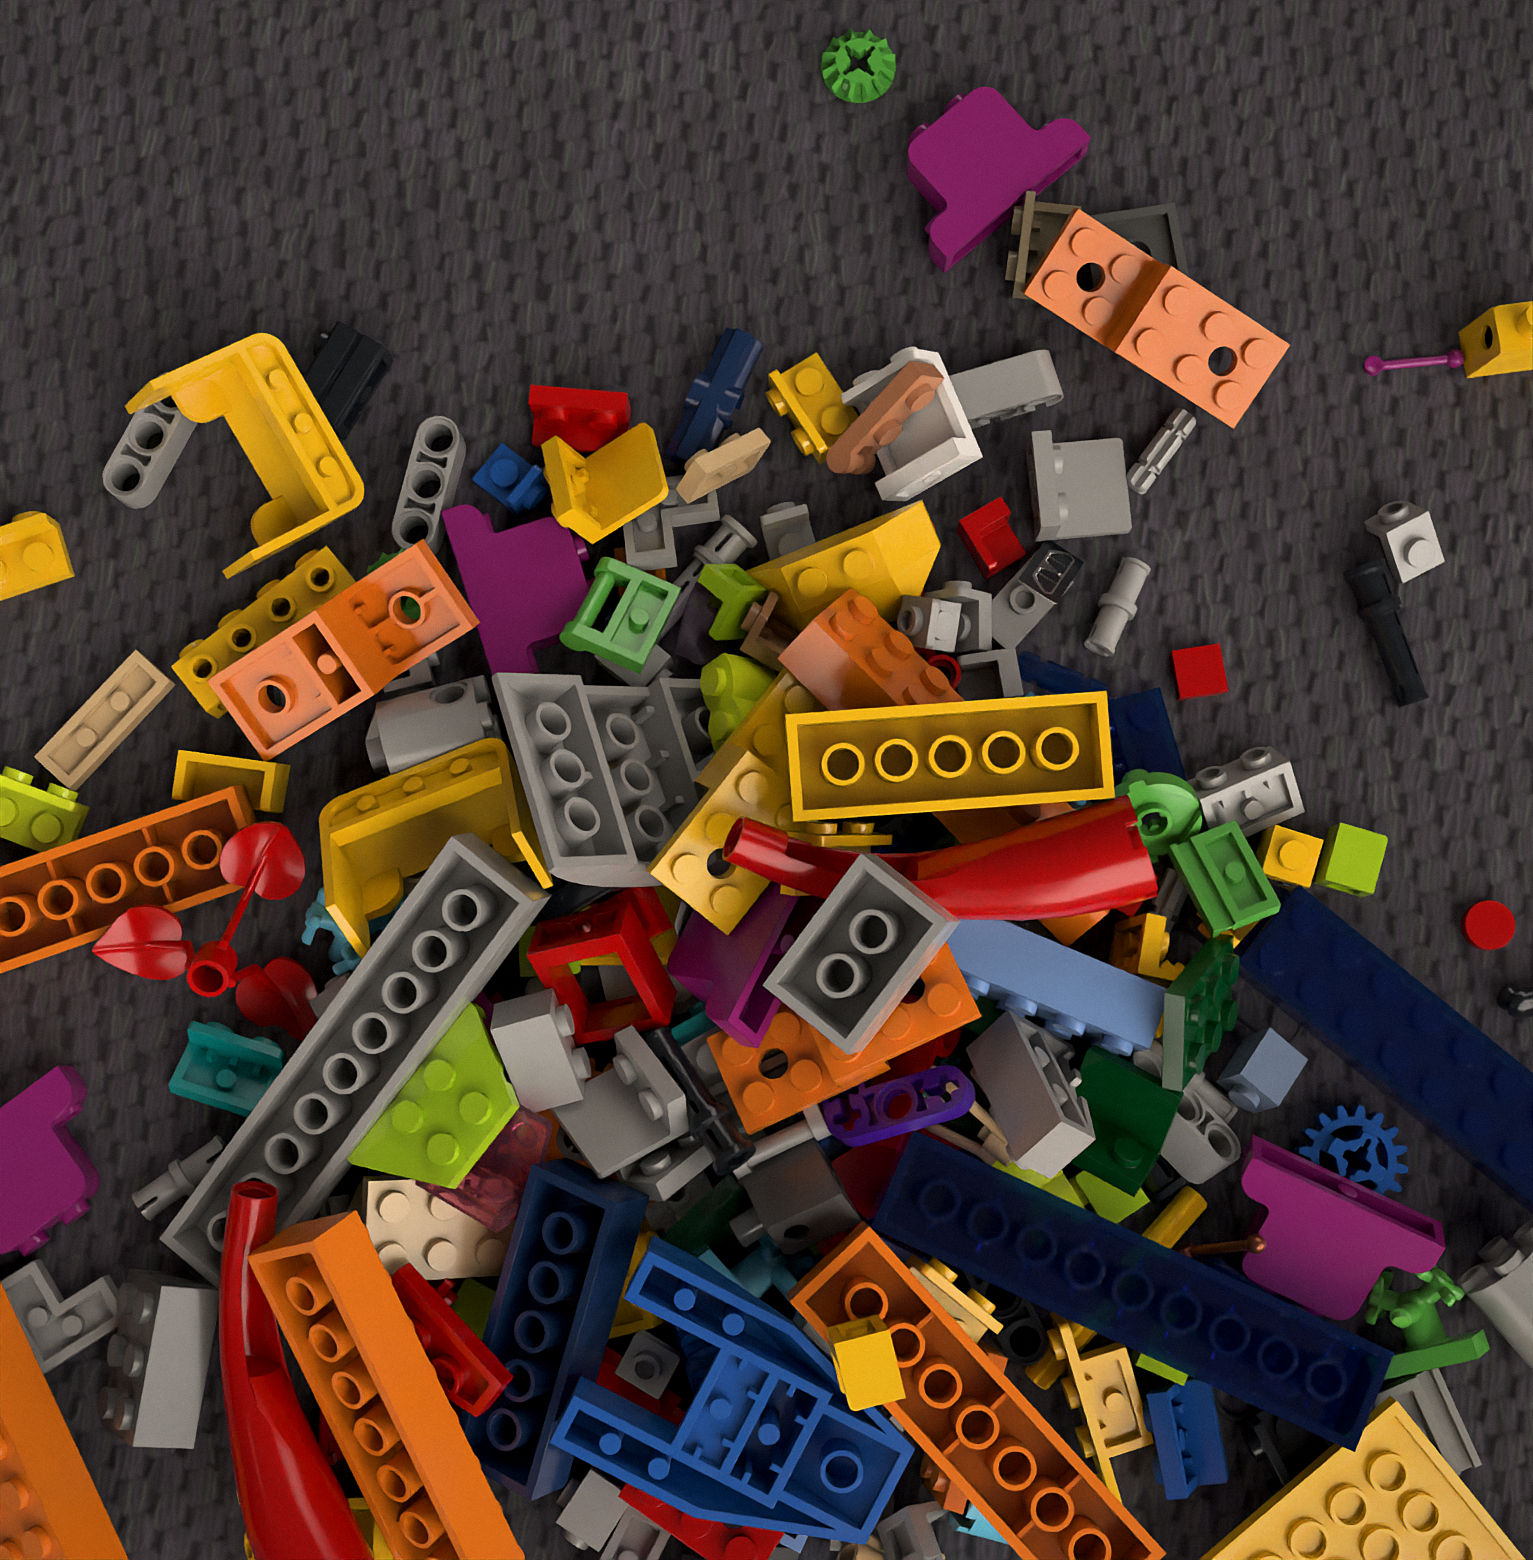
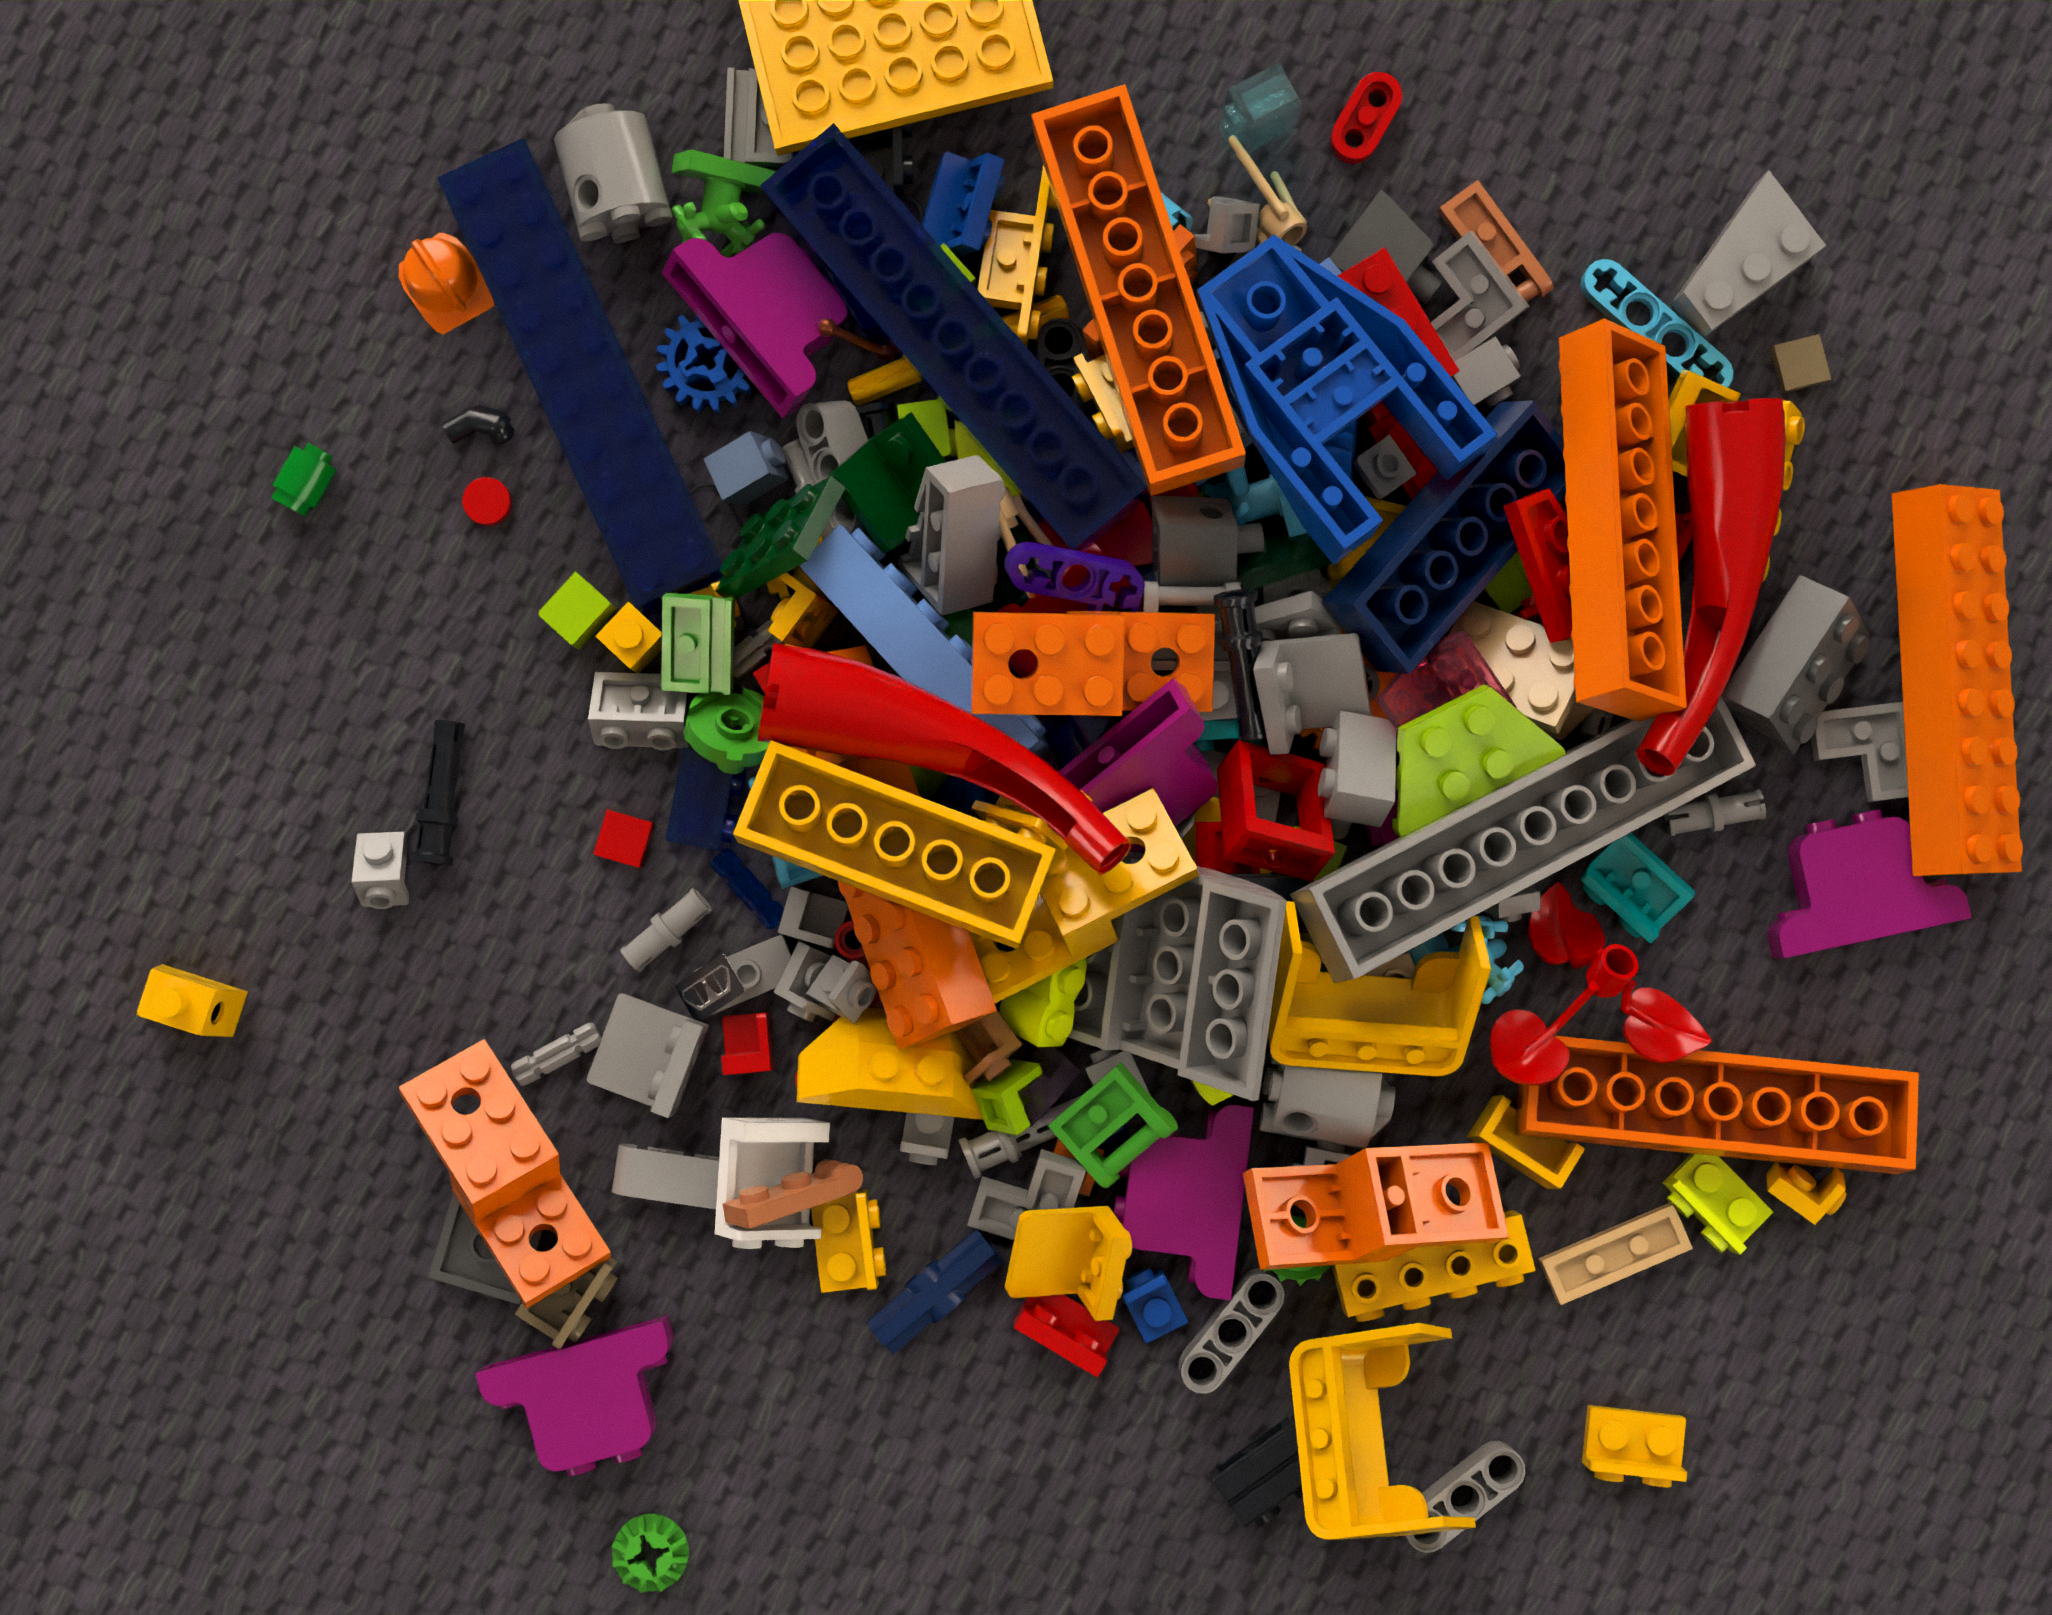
camera: 160 degrees left, 5 degrees up
(729, 461) = (943, 1226): tan plate -> none
(861, 953) = (1052, 705): light grey brick -> none
(865, 1362) = (1208, 372): yellow panel -> none
(1374, 364) = (324, 1042): magenta hinge -> none

